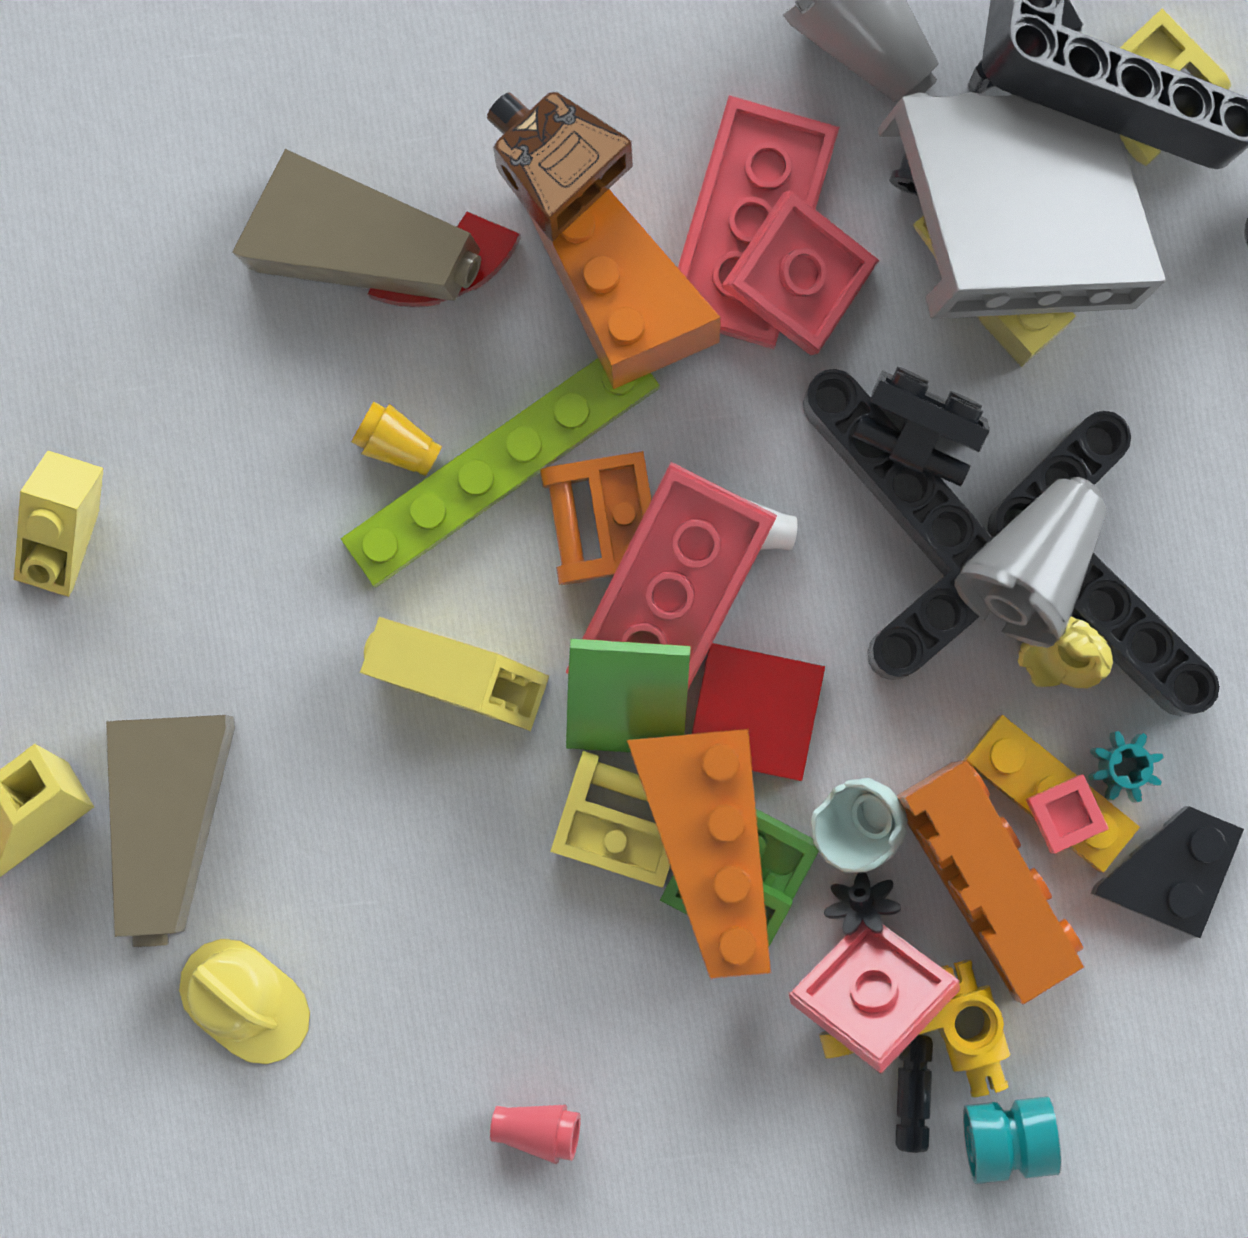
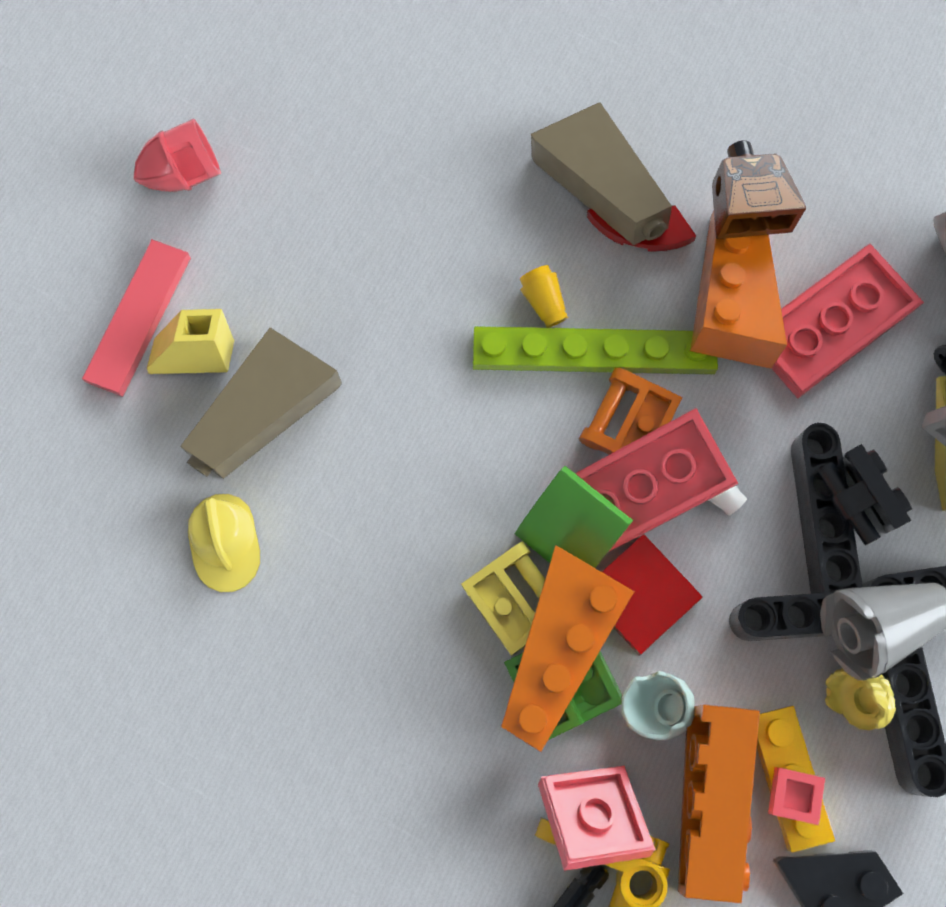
camera: 40 degrees right, 10 degrees down
(56, 522) = (328, 210): light yellow slope -> none
(454, 673) = (483, 443): light yellow slope -> none
(539, 1130) = (331, 746): coral cone -> none
(800, 273) = (846, 363): coral tile -> none
(862, 903) = (625, 756): black plant -> none
(1138, 777) = (866, 795): teal gear -> none

